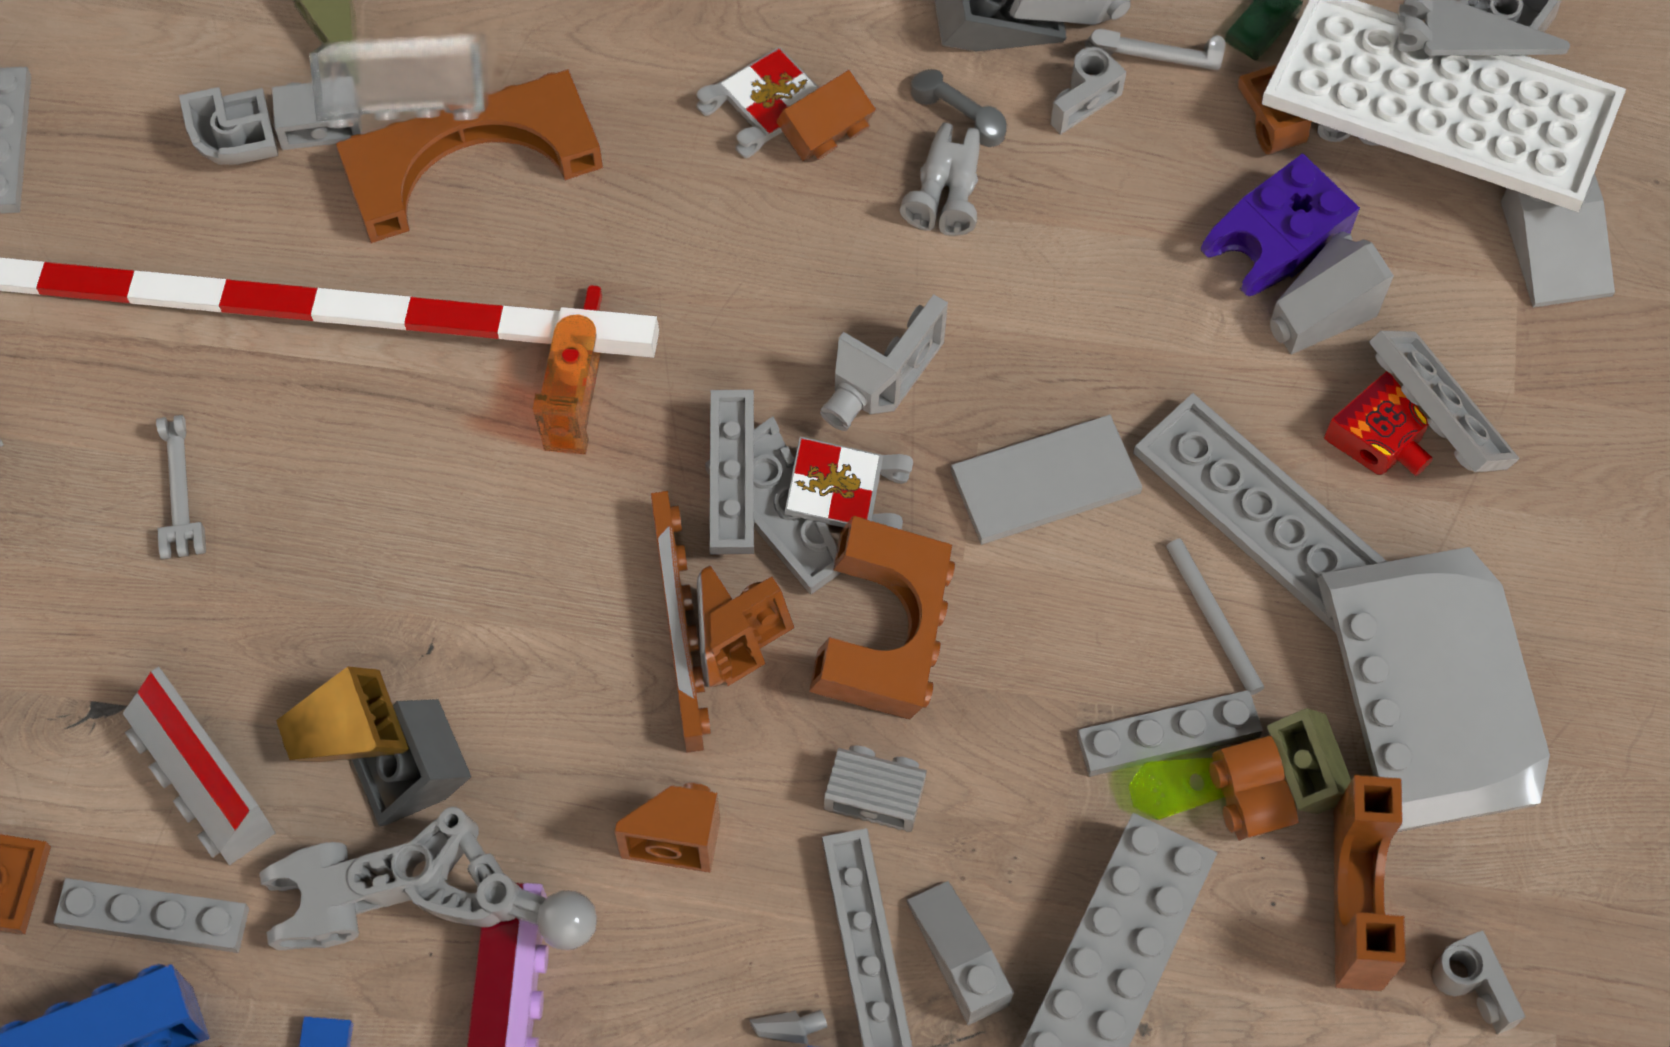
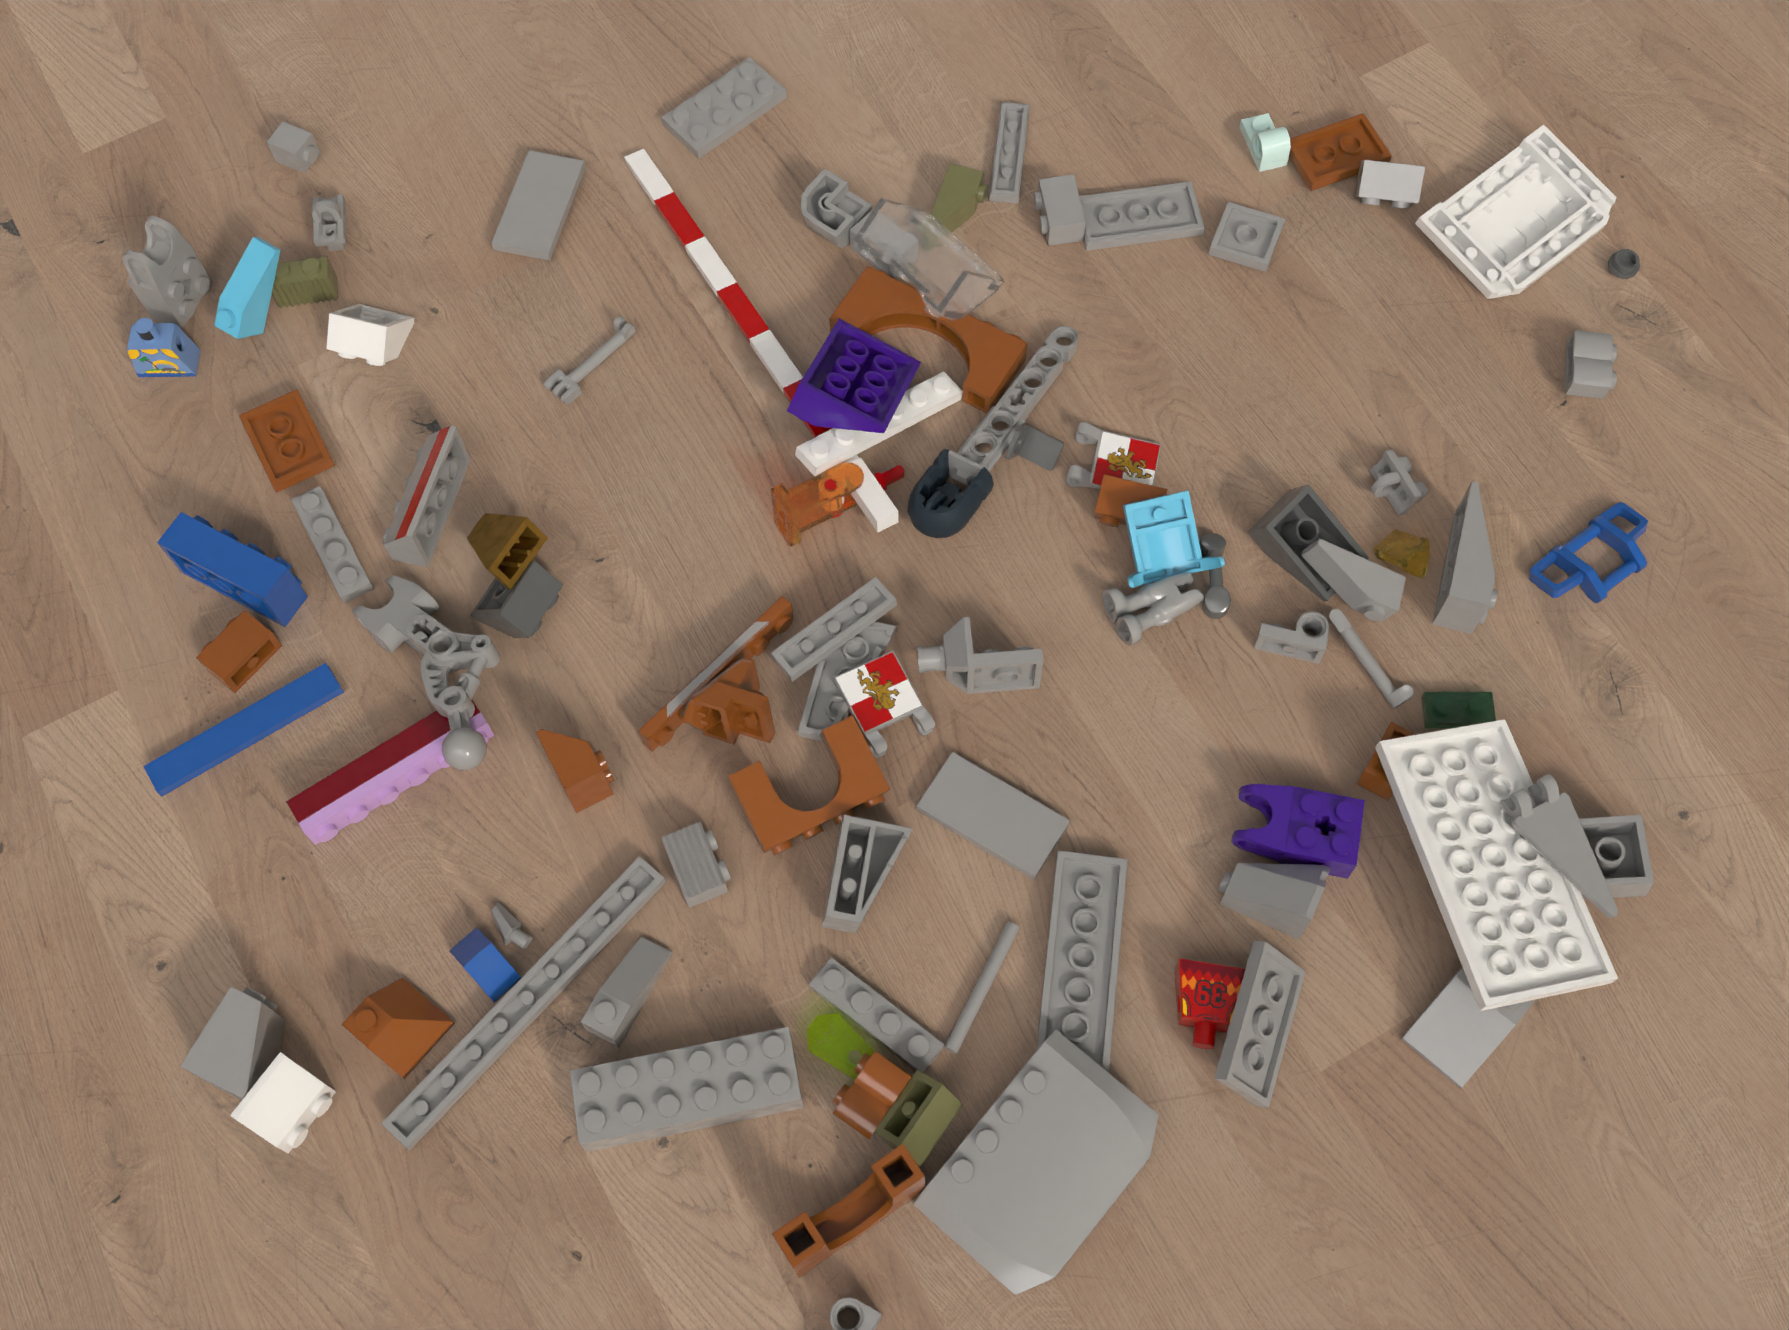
camera: 55 degrees right, 0 degrees up
(467, 252) = (853, 382): none -> dark purple slope
(532, 267) = (841, 444): none -> white plate
(651, 222) = (931, 500): none -> piece
(687, 150) = (1035, 447): none -> dark grey bracket
(896, 112) = (1164, 539): none -> medium azure piece
(1013, 636) = (859, 868): none -> light grey wedge

